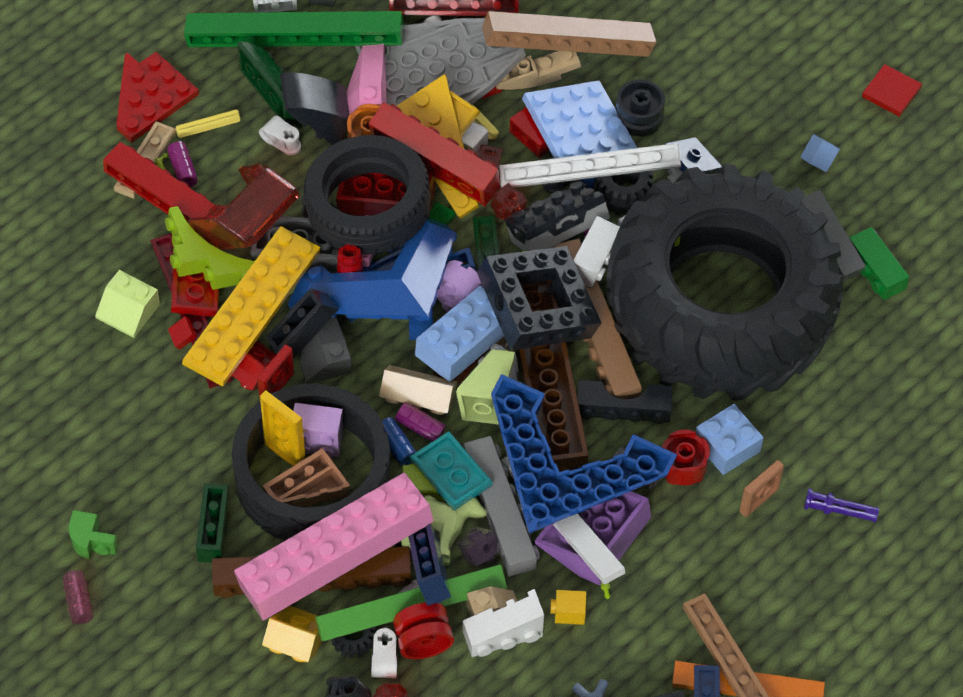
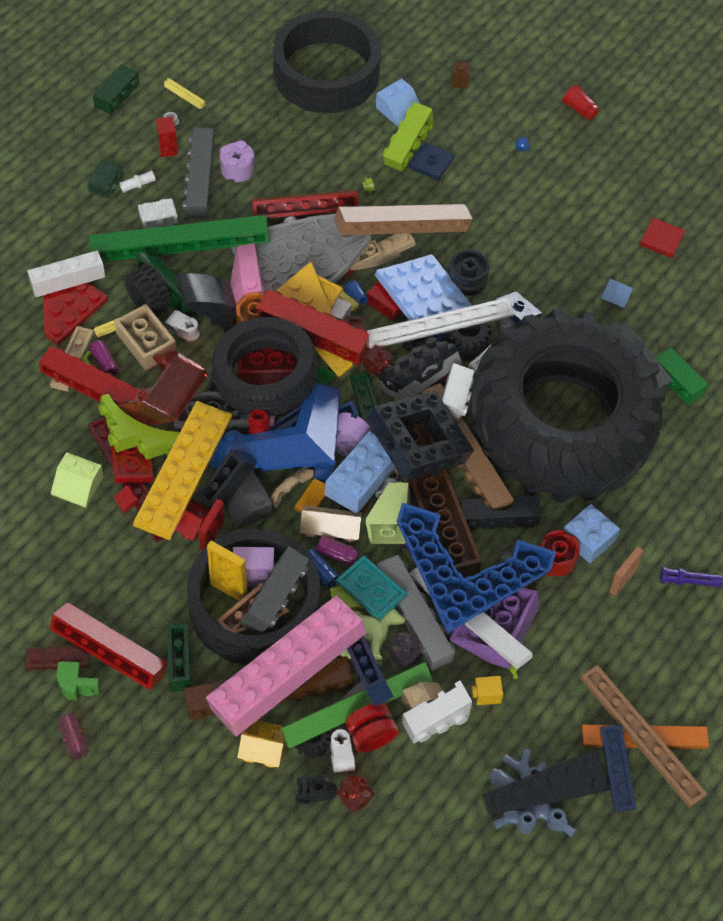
camera: 10 degrees left, 0 degrees up
(62, 505) = (49, 657): none -> clear red plate
(134, 500) = (108, 646): none -> brick
(152, 57) = (66, 273): none -> white brick
(233, 141) = (144, 335): none -> tan brick
(245, 86) = (148, 288): none -> black tyre
(333, 459) = (274, 591): none -> dark grey wedge
(392, 329) = (301, 475): none -> tan piece
(402, 356) = (312, 496): none -> light orange tile
(497, 115) = (356, 292): none -> blue cone

